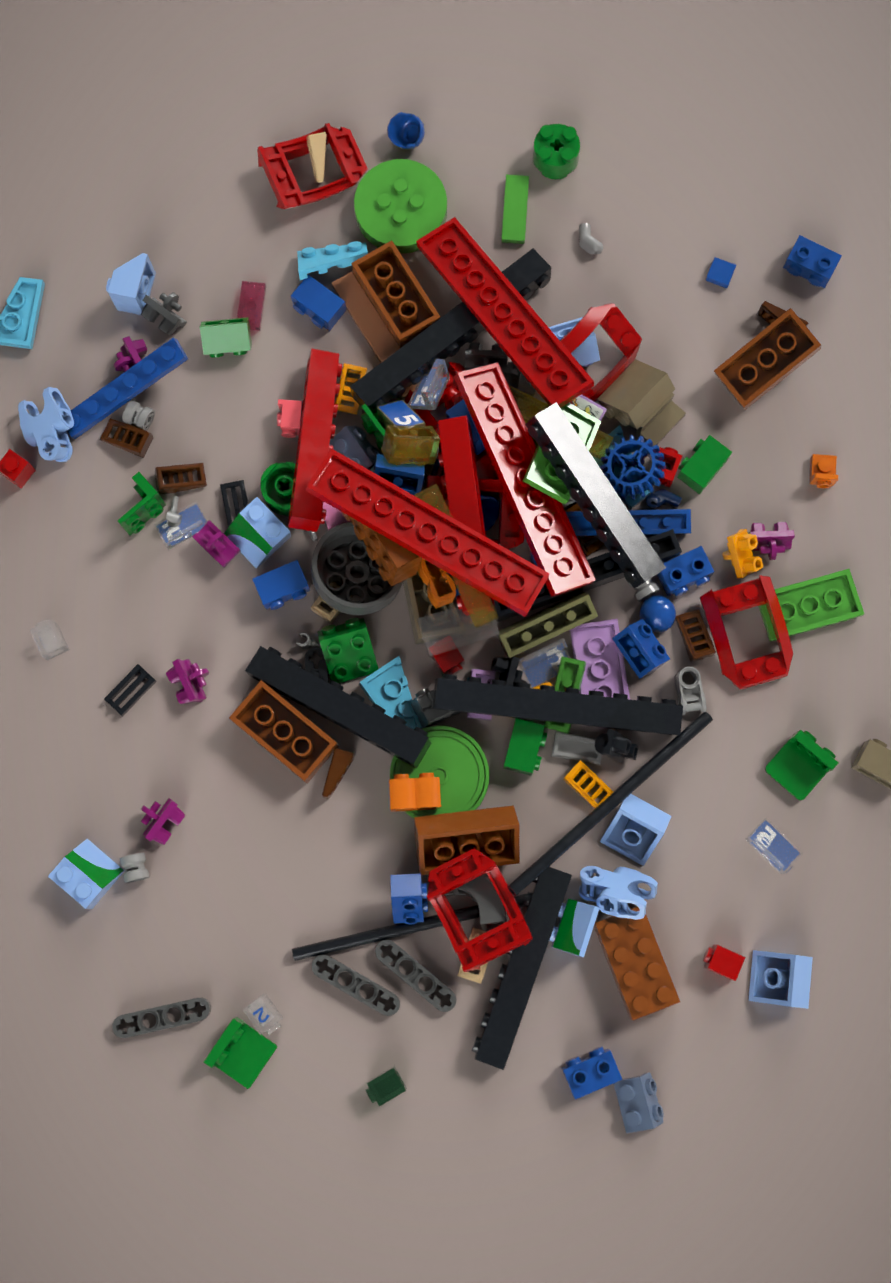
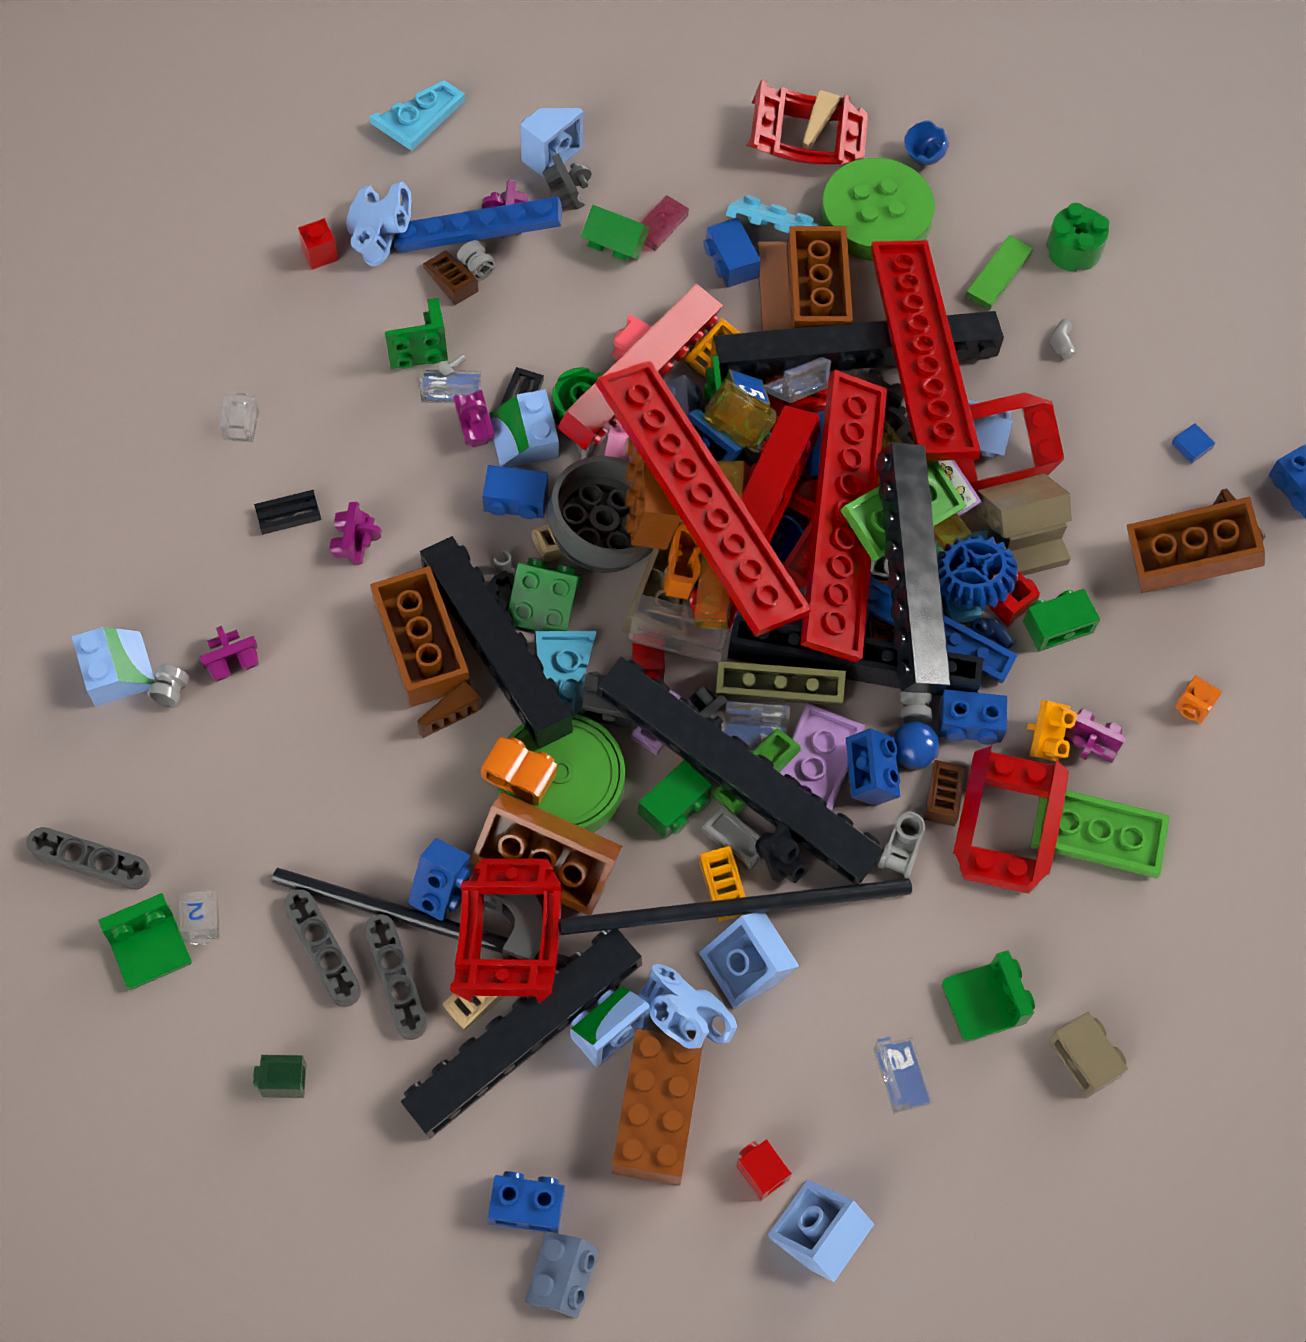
camera: 25 degrees right, 15 degrees down
(173, 487) = (474, 328): reddish brown slope -> none

